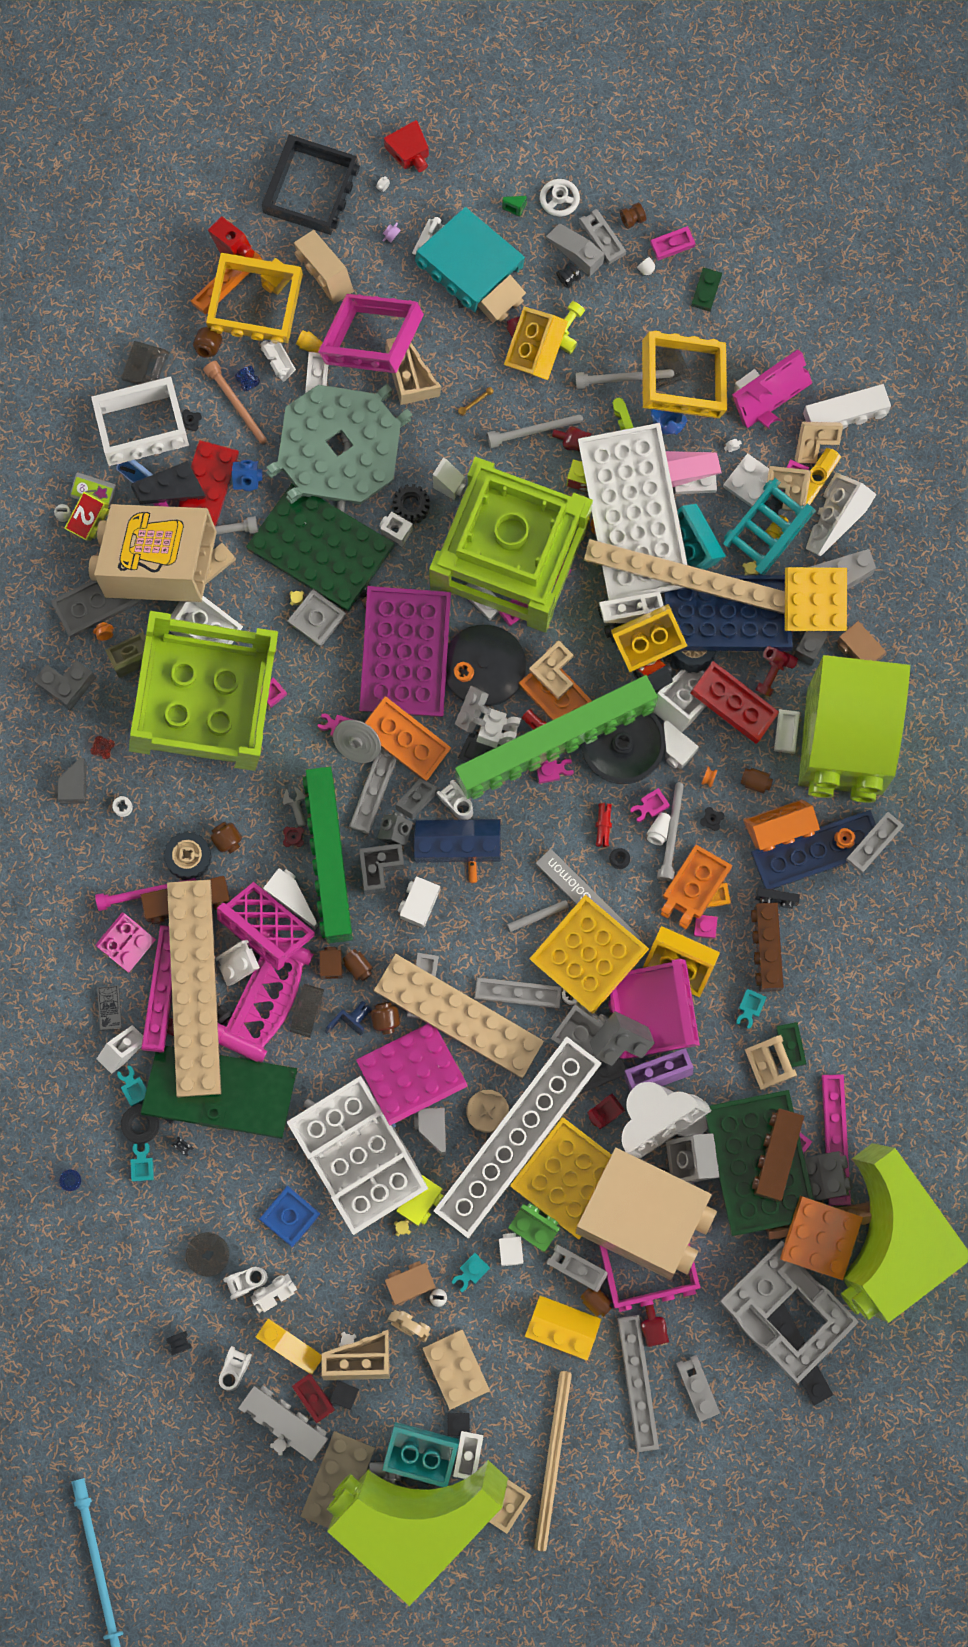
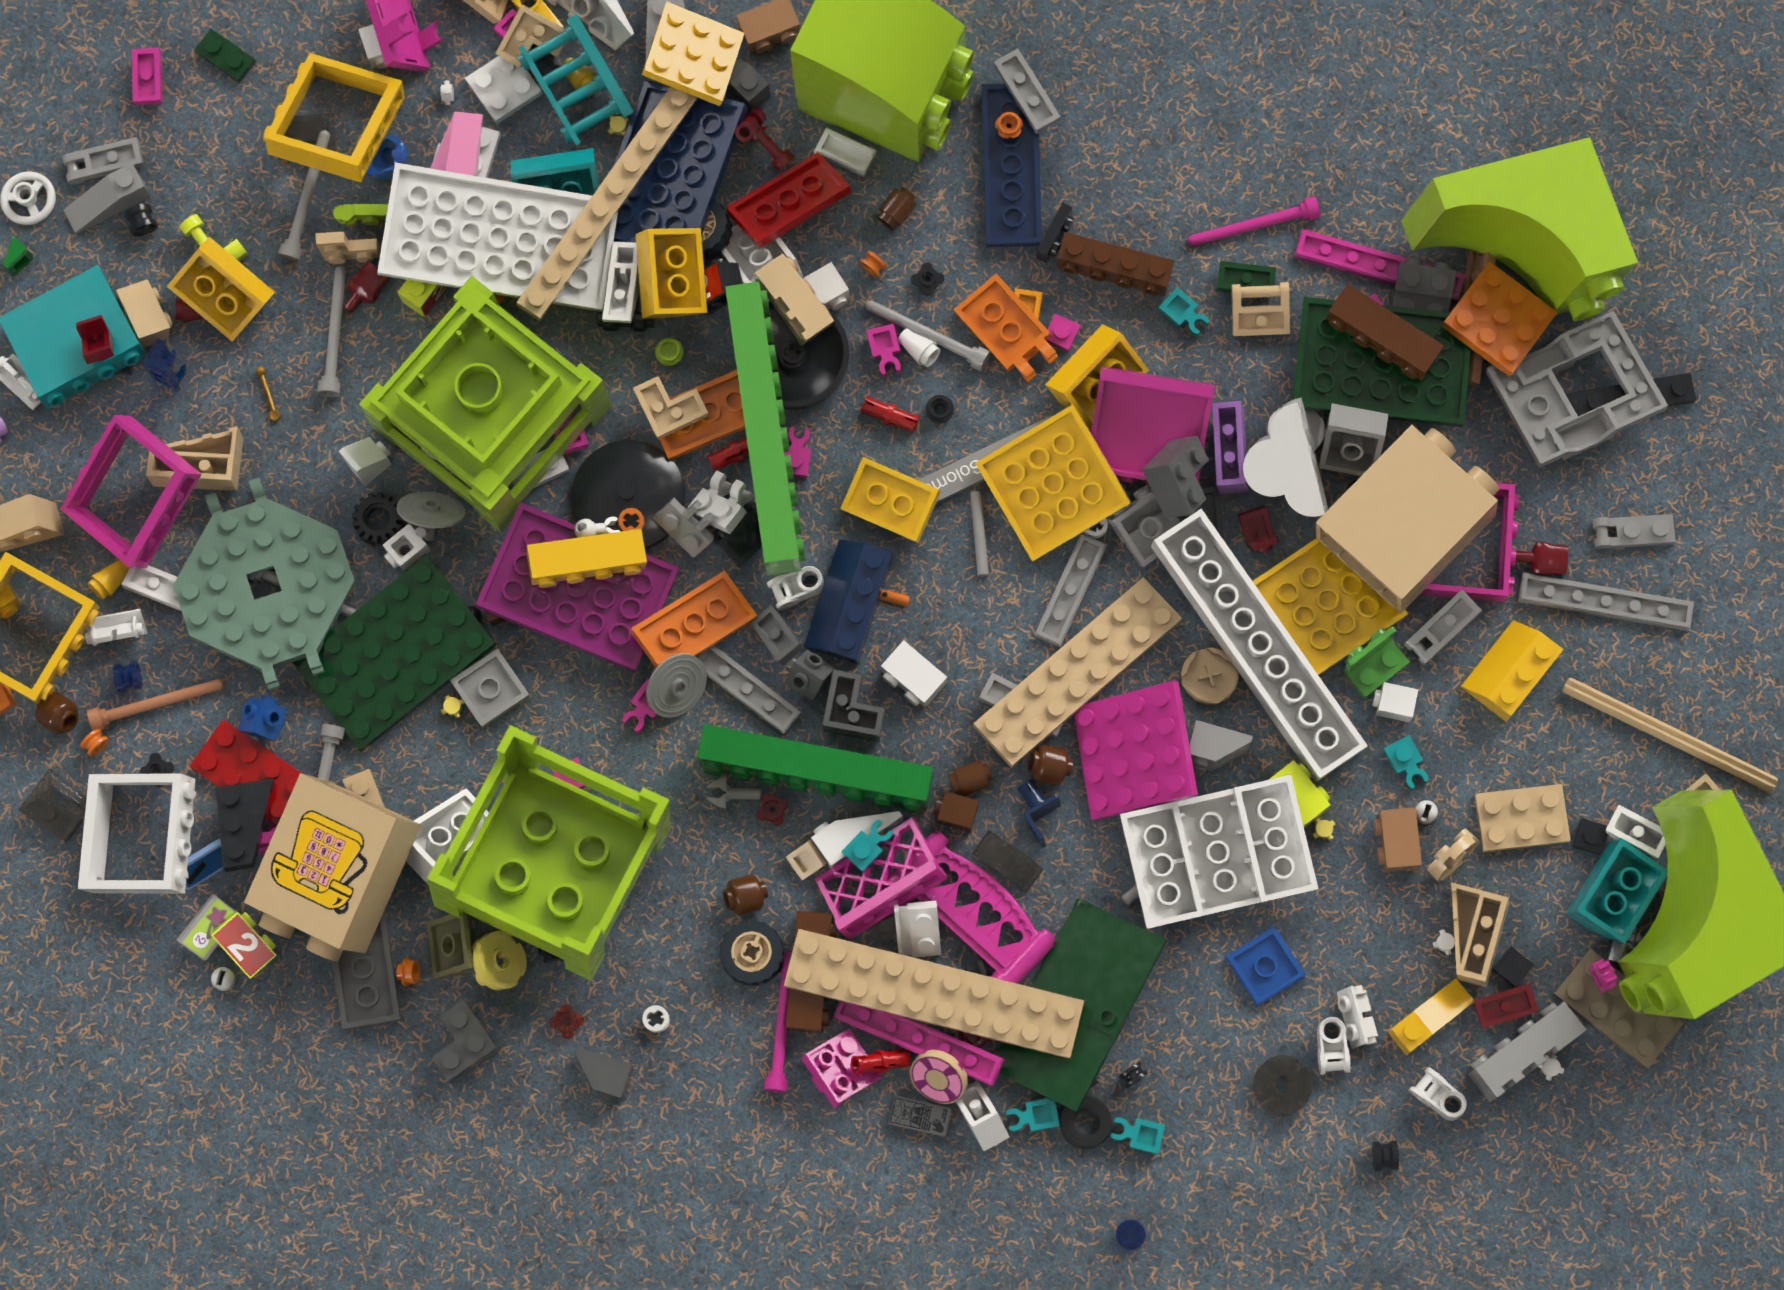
camera: 65 degrees left, 0 degrees up
(117, 682) = (485, 965): none -> light yellow plate
(136, 967) = (880, 1061): none -> red pin
(137, 1010) = (938, 1077): none -> tile
(195, 373) = (94, 742): none -> orange bush
(263, 870) = (806, 859): none -> tan plate
(282, 906) = (864, 849): none -> teal plate
(355, 1462) = (1603, 975): none -> dark pink plate
(425, 534) = (430, 511): none -> light grey shield
(425, 649) = (586, 557): none -> yellow brick
(447, 645) = (588, 528): none -> white arm
(467, 273) = (96, 339): none -> dark red bracket
(469, 322) = (159, 364): none -> clear blue hinge
(539, 845) = (890, 499): none -> yellow plate
(592, 412) = (338, 249): none -> tan plate
(596, 1302) = (1492, 618): reddish brown brick -> none
(597, 658) = (669, 352): none -> lime plate
(632, 215) = (90, 113): reddish brown wheel -> none
(647, 266) = (166, 119): white hinge -> none
(658, 727) = (793, 298): none -> tan wedge
(782, 825) = (965, 194): orange slope -> none
(859, 1073) = (1307, 209): none -> dark pink piece

